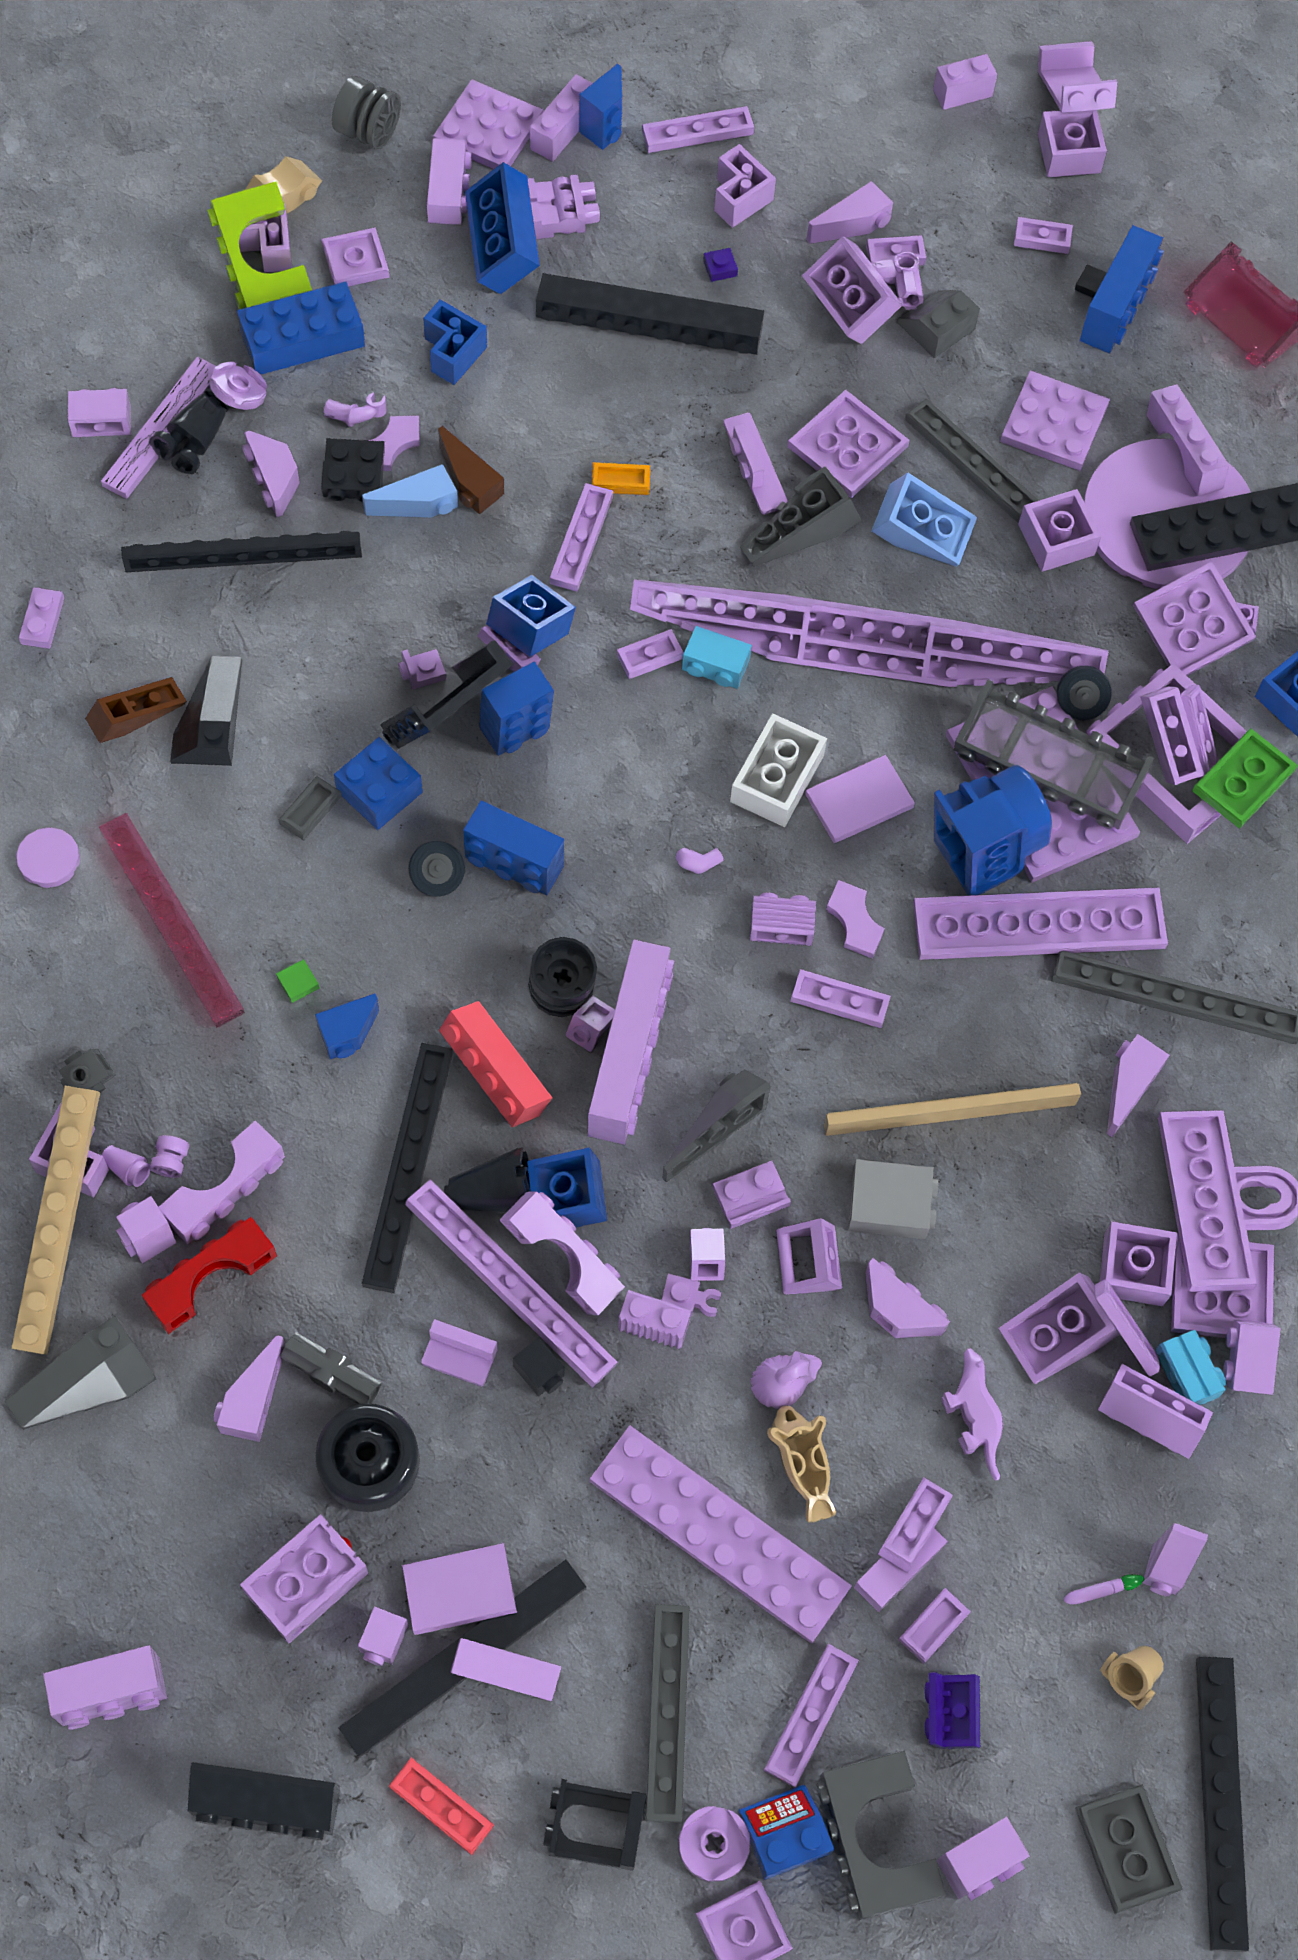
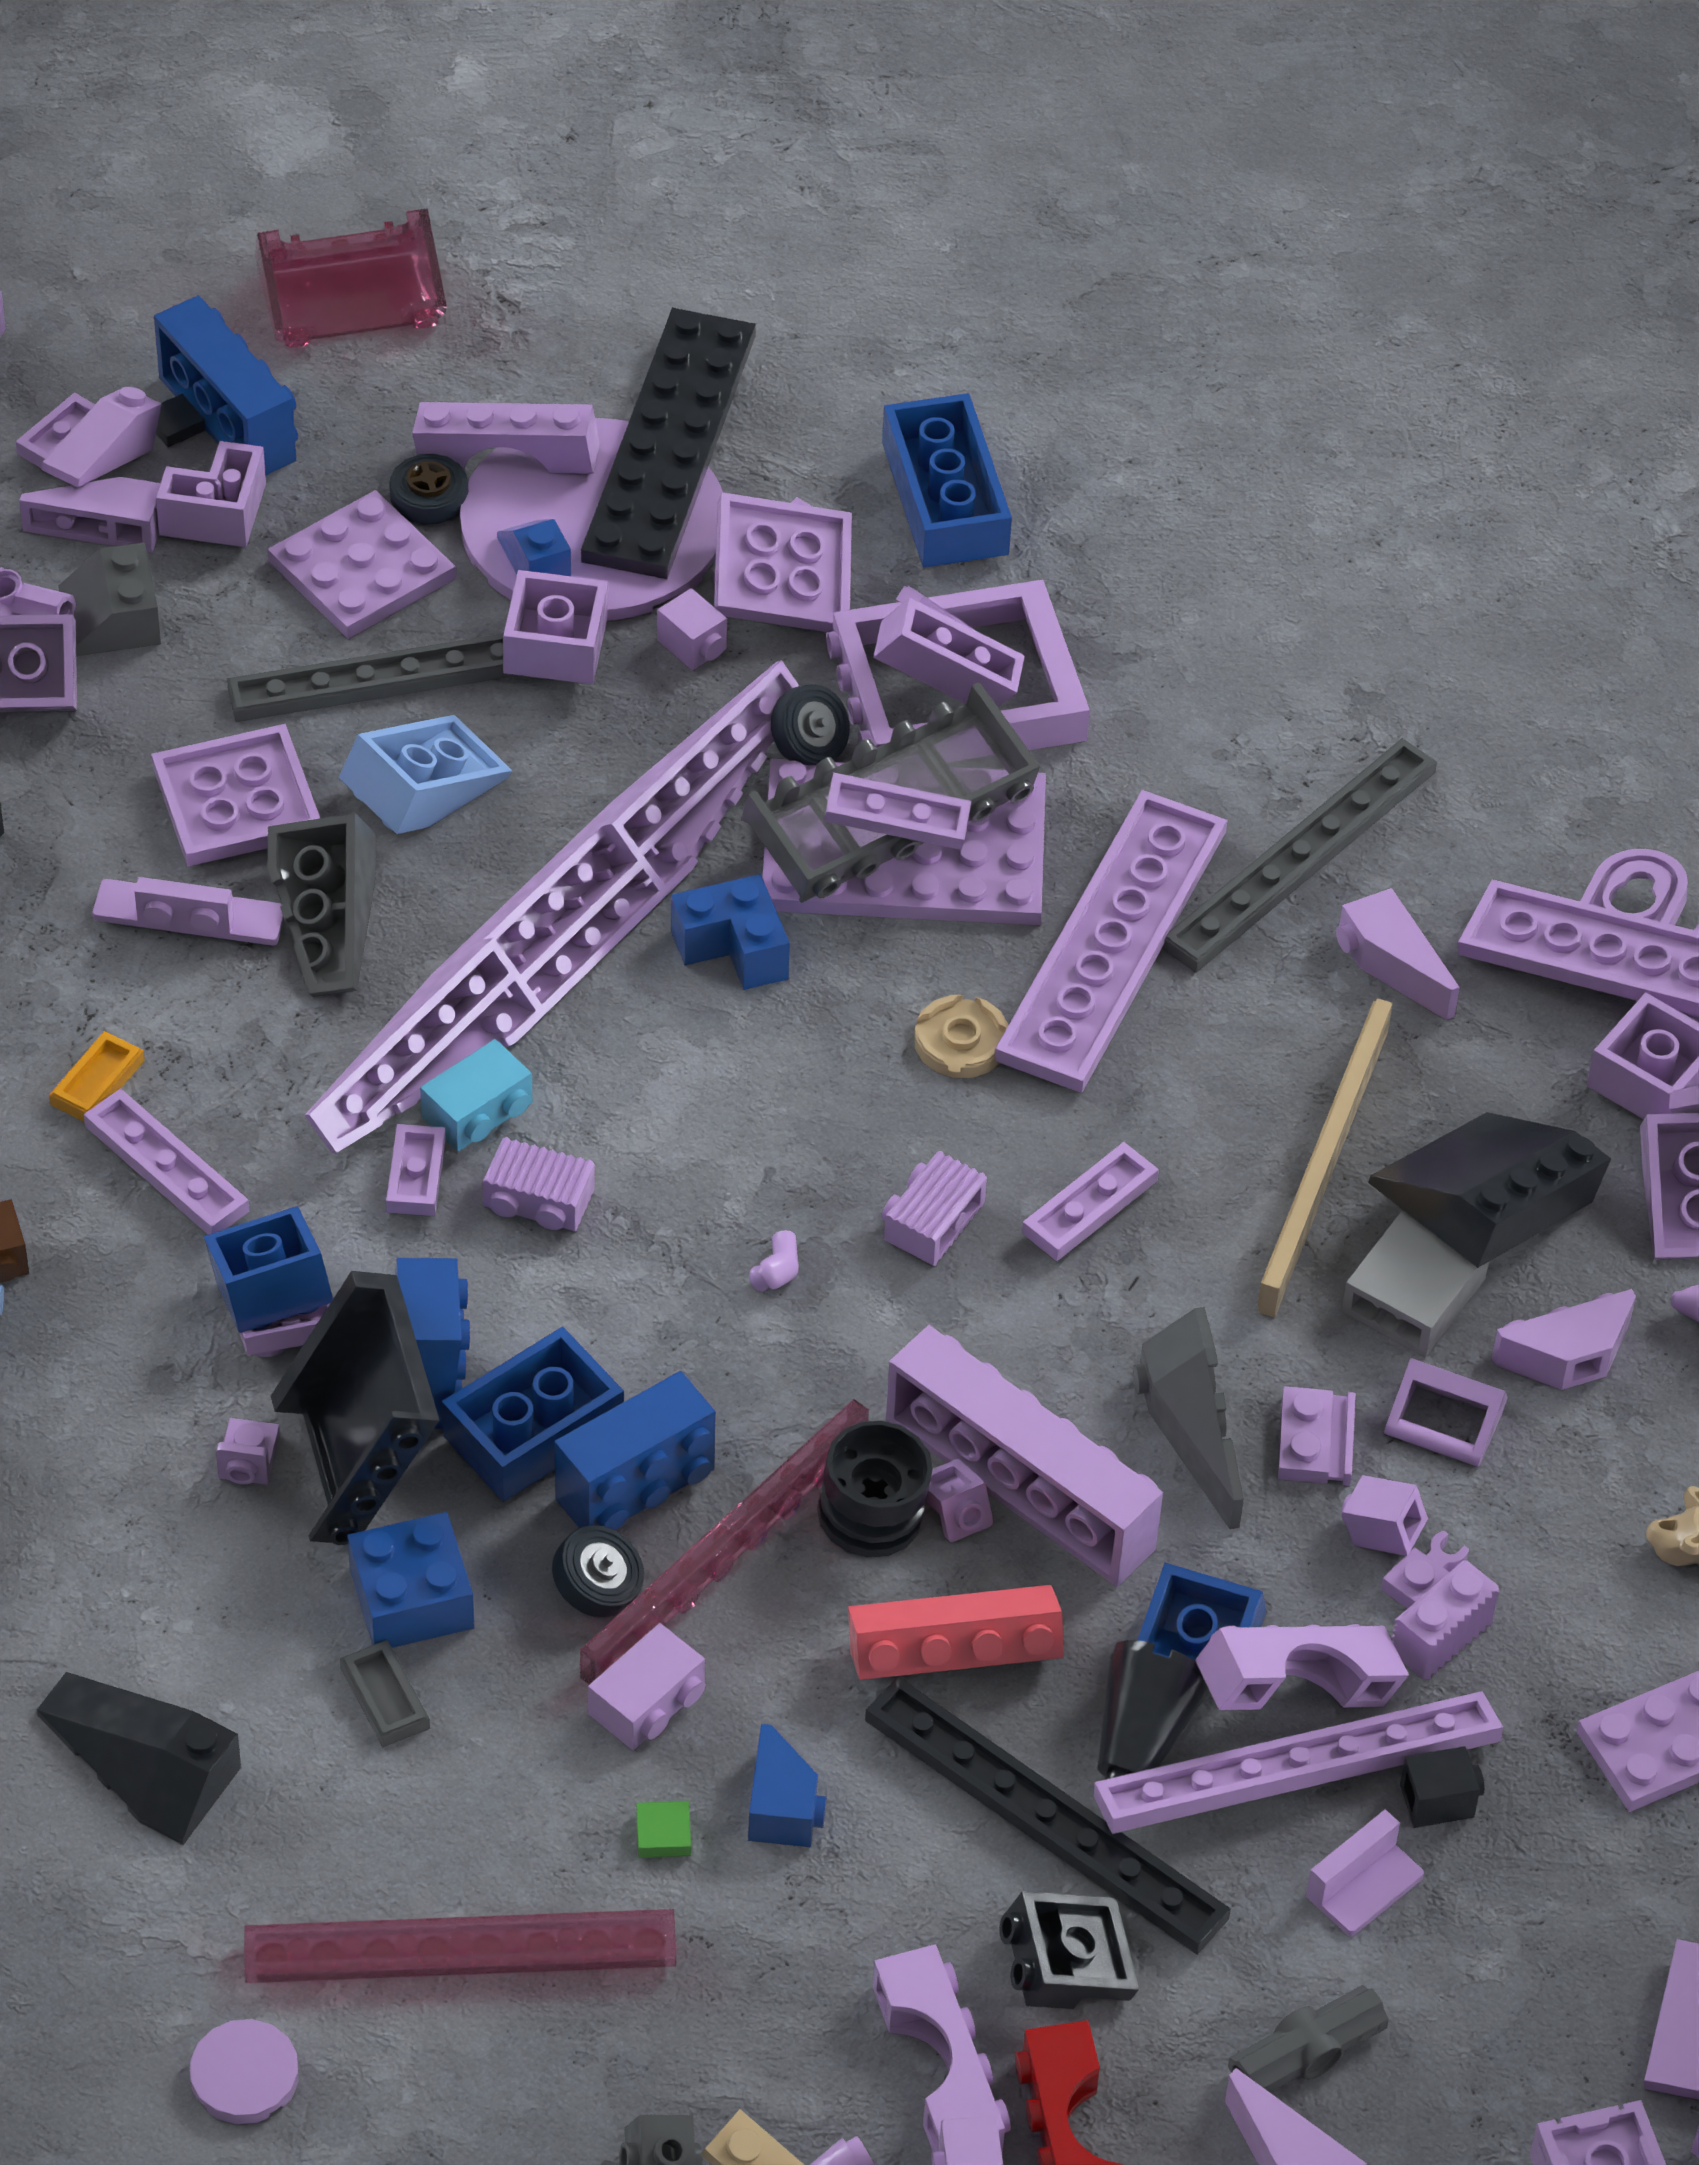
camera: 60 degrees left, 15 degrees down
(134, 708) = (68, 1845): reddish brown slope -> none
(169, 1156) = (857, 2107): lavender wheel -> none
(323, 1217) = (1068, 1949): none -> black plate
(372, 1483) = (1471, 2044): black wheel -> none
(377, 928) = (647, 1687): none -> lavender brick
(484, 920) = (718, 1549): none -> clear pink plate
(516, 783) = (518, 1410): none -> blue brick
(674, 717) = (538, 1185): none -> lavender brick
(778, 770) = (708, 1102): white brick -> none
(784, 1378) = (1606, 1517): lavender hair -> none
(859, 799) = (800, 1044): lavender tile -> none
(860, 930) = (1000, 1135): lavender tile -> none
(917, 725) = (736, 922): none -> blue brick
(919, 876) = (959, 1036): none -> tan tile
(981, 1208) = (1494, 1183): none -> black slope
(991, 828) = (971, 896): blue brick -> none
(999, 281) = (98, 512): none -> lavender slope
(1026, 752) = (897, 811): none -> lavender plate
(1041, 330) = (216, 503): none -> lavender brick
(1044, 254) = (107, 437): none -> lavender slope
(1111, 496) = (537, 547): none -> blue slope
(1118, 601) = (692, 629): none -> lavender brick
(1128, 413) = (428, 488): none -> black wheel
(1245, 778) = (1051, 621): bright green tile -> none

